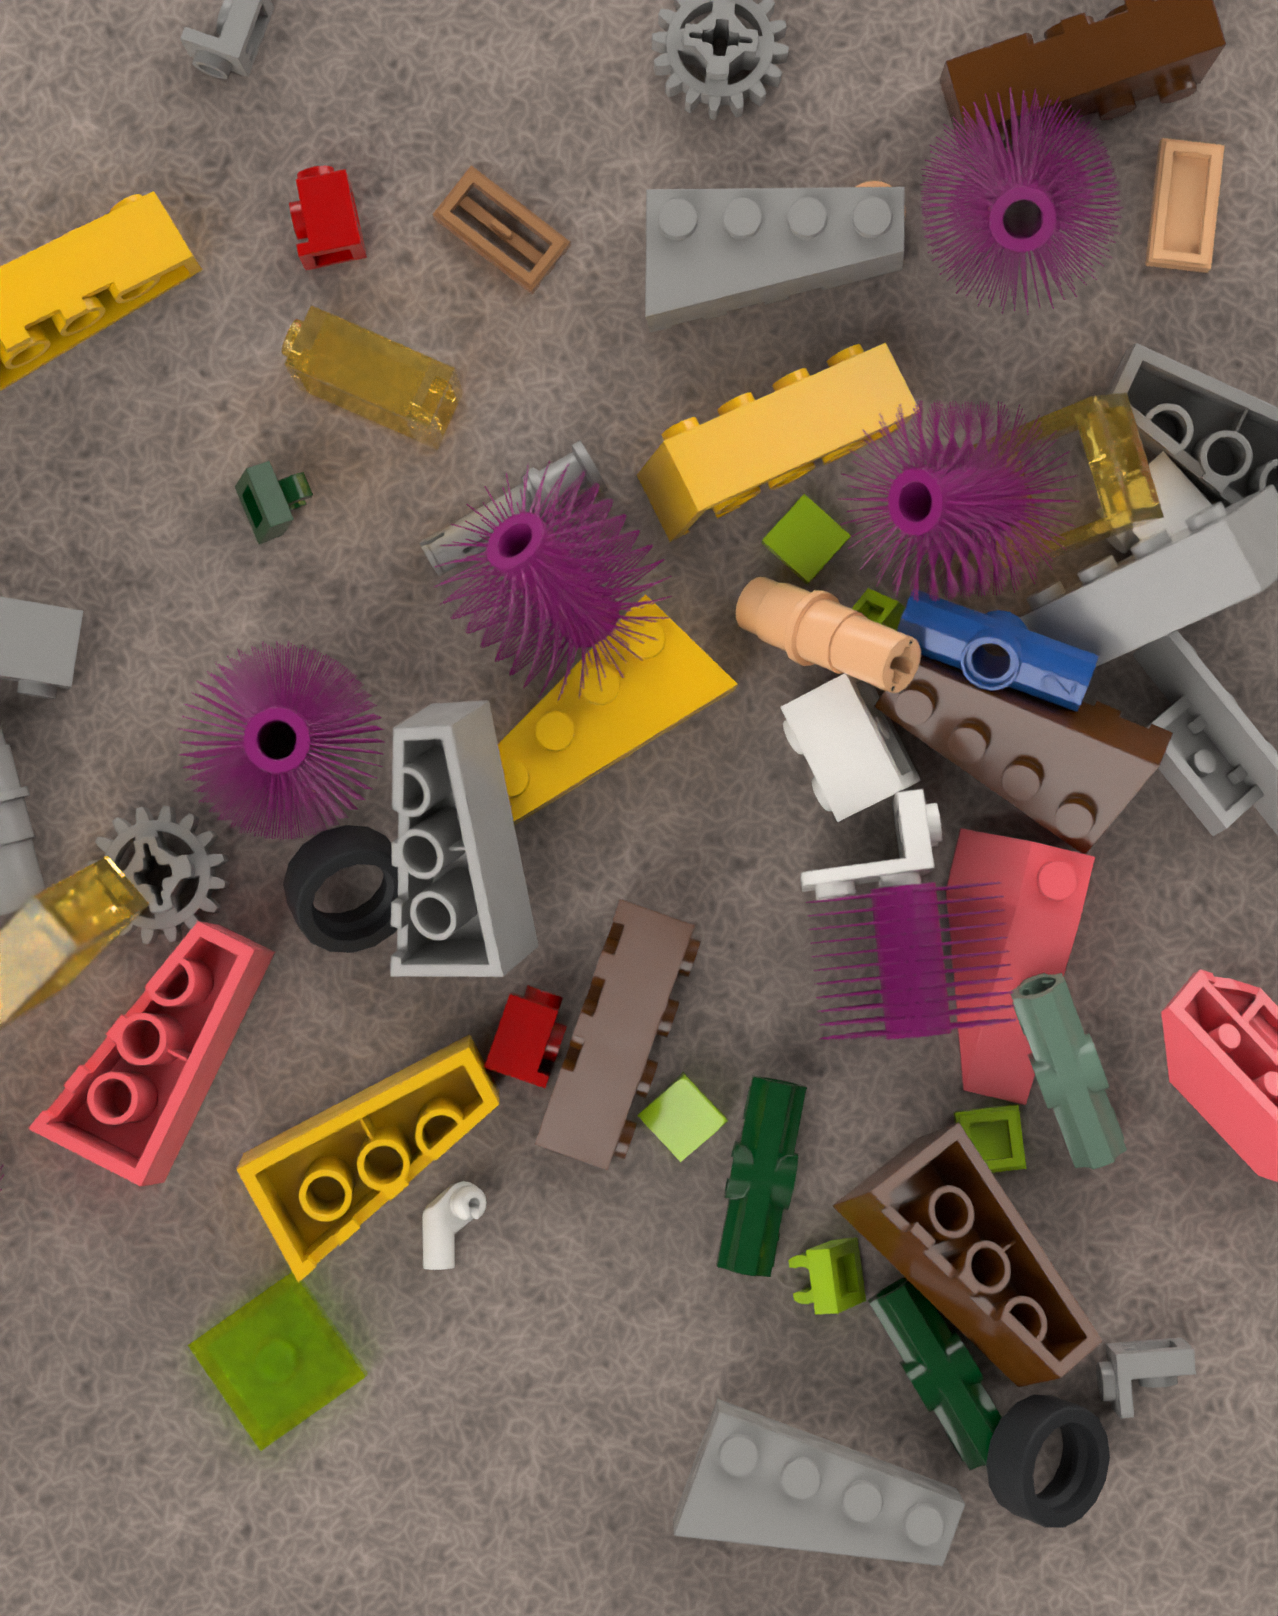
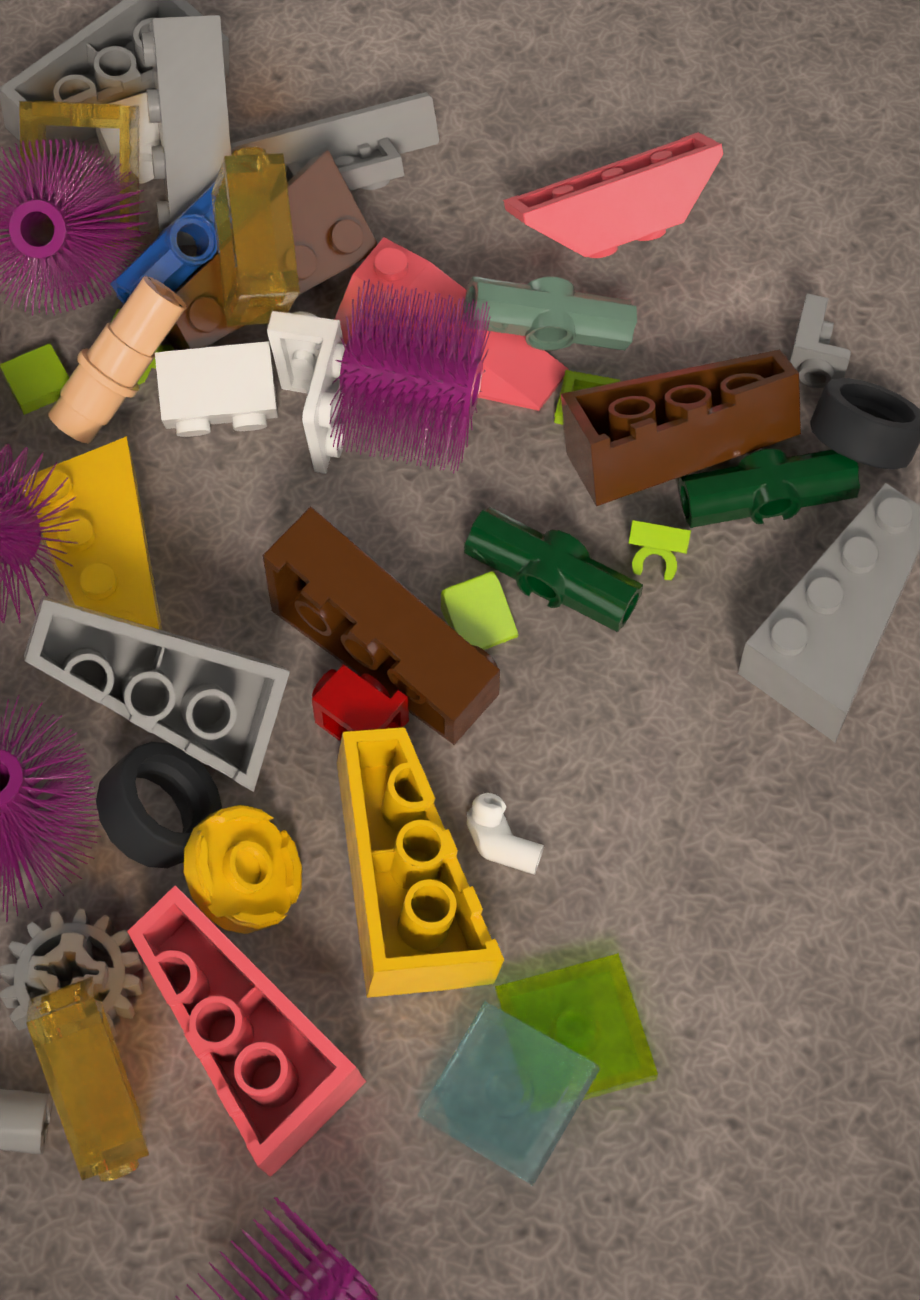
camera: 70 degrees left, 25 degrees down
(192, 1321) = (509, 1092): none -> clear light blue tile
(315, 993) = (242, 869): none -> yellow tile
(986, 744) = (254, 236): none -> clear yellow window

